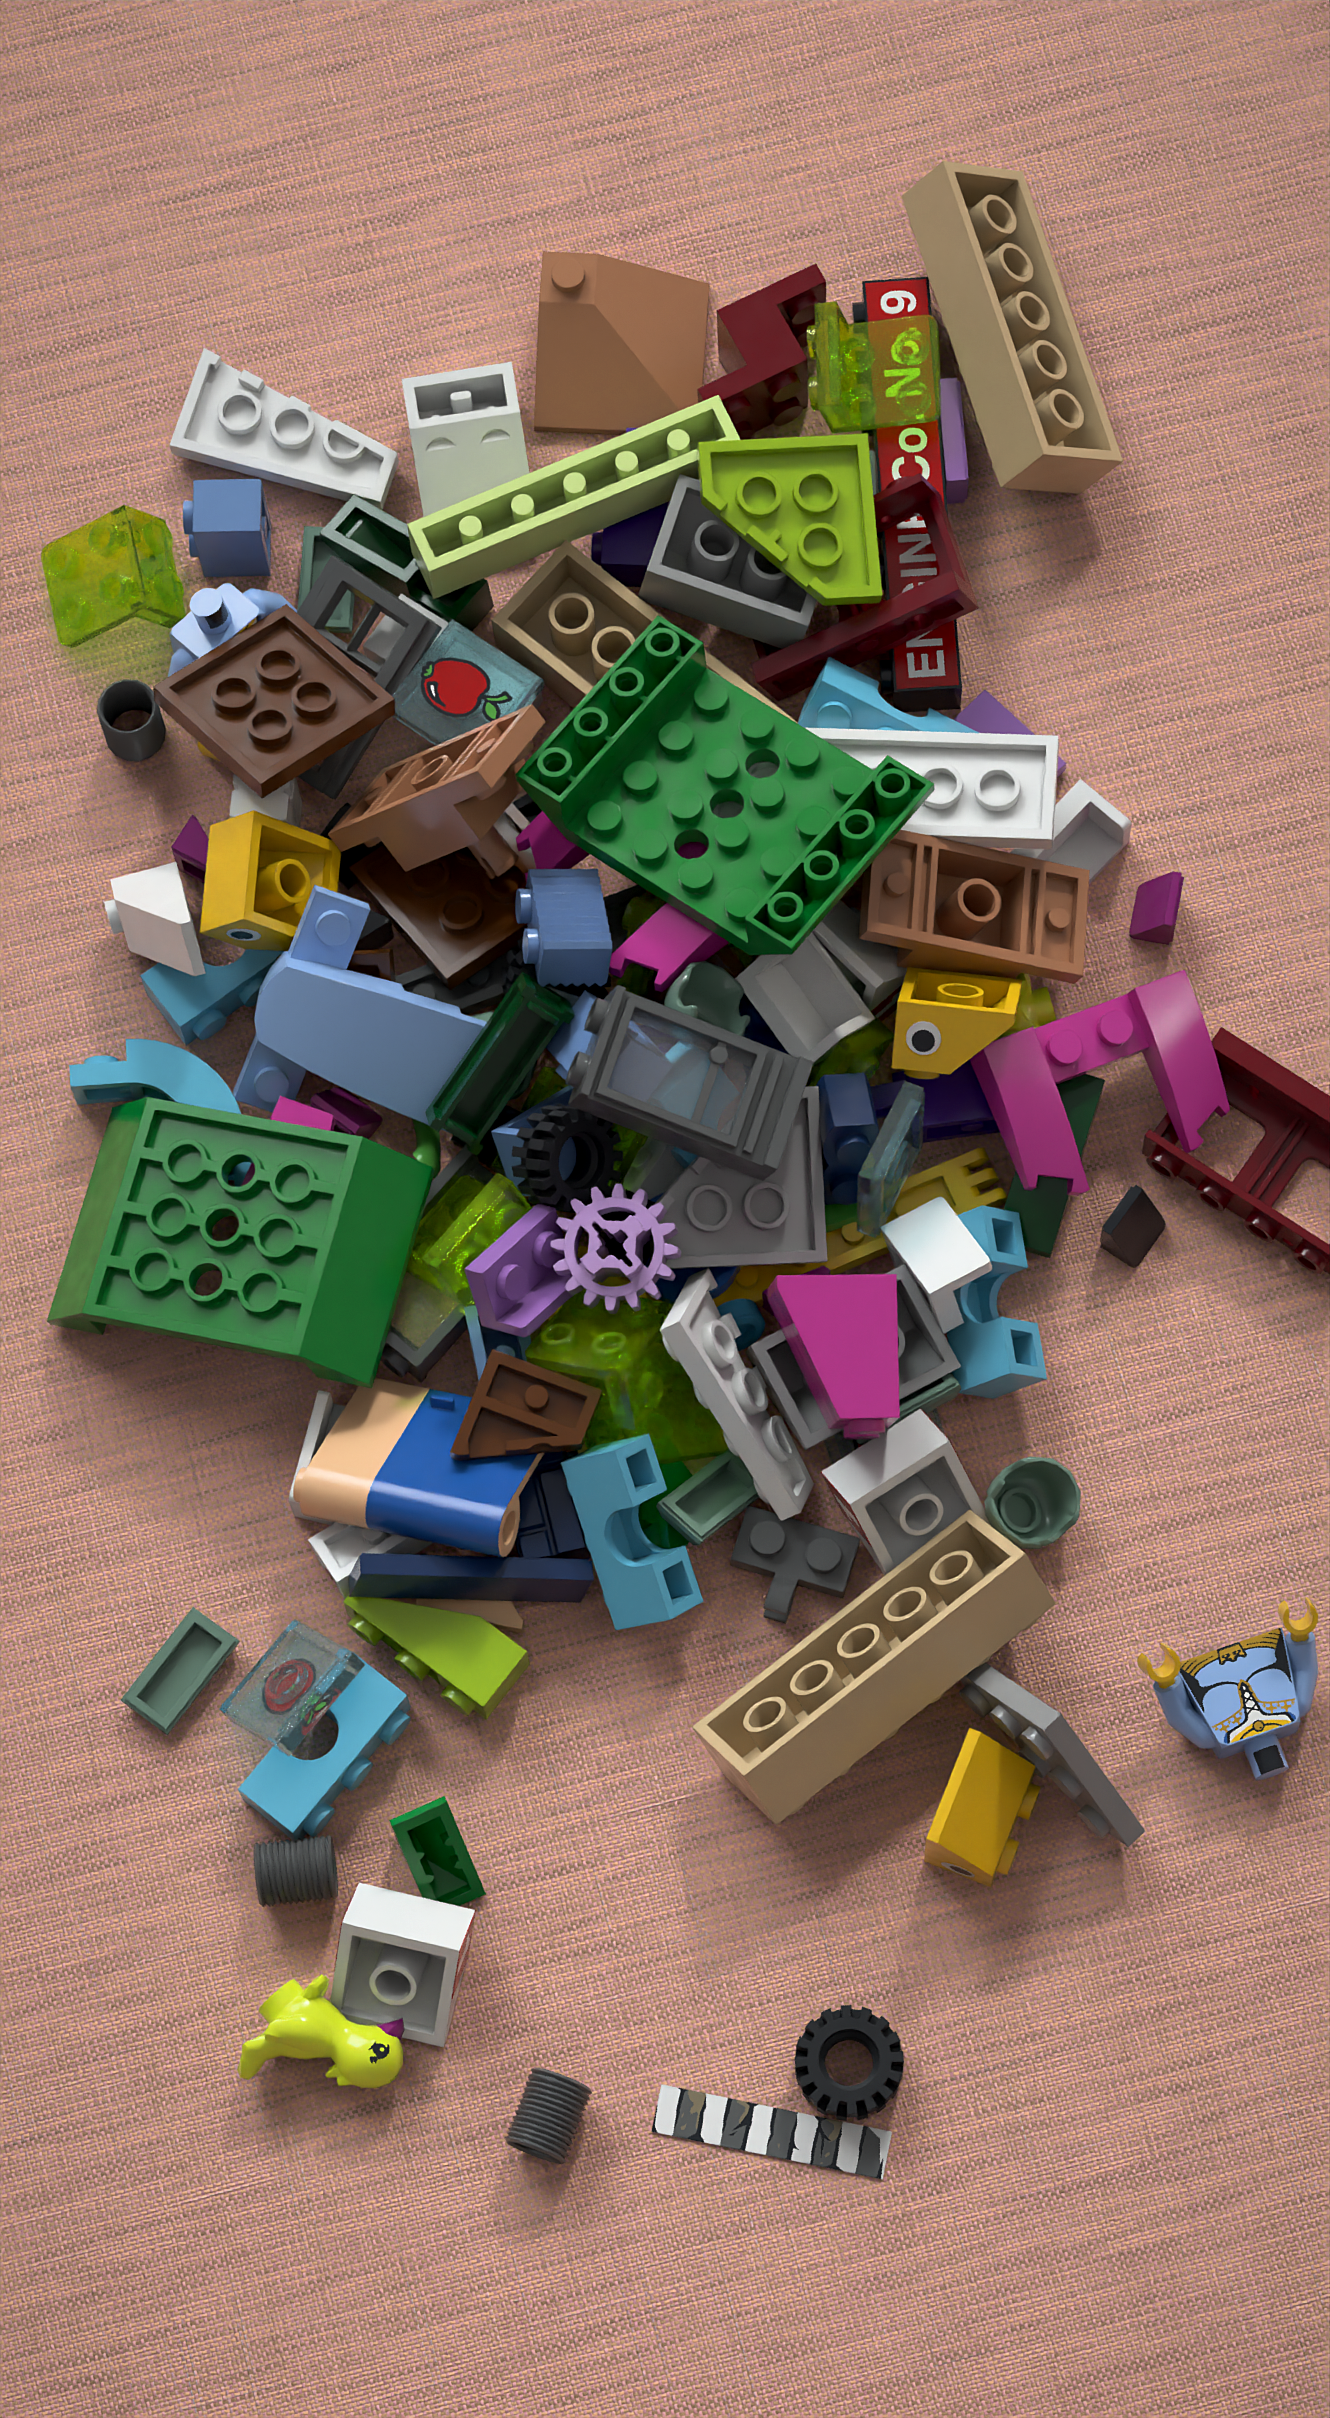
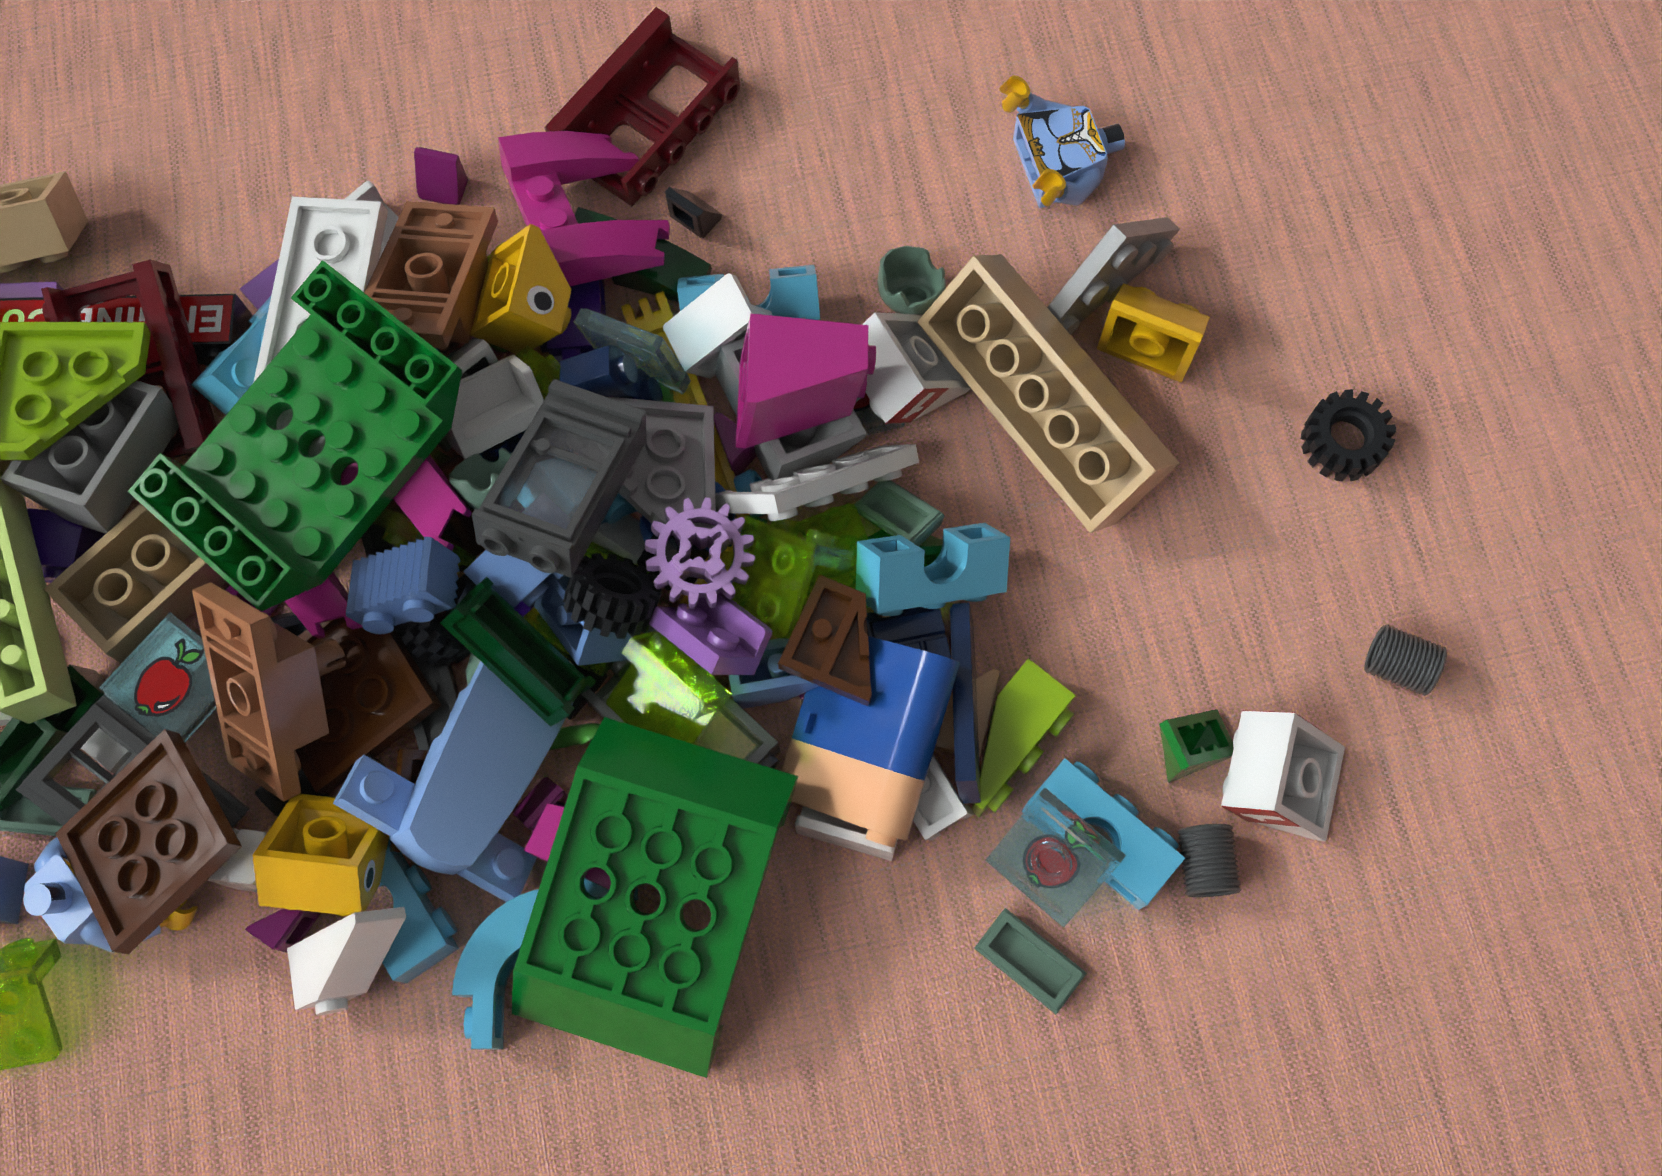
camera: 90 degrees left, 0 degrees up
(124, 697) = (120, 984): dark grey piece -> none
(312, 2027) = (1342, 851): neon yellow animal -> none
(771, 2131) = (1396, 503): sticker -> none
(793, 1556) = (944, 461): dark grey plate -> none

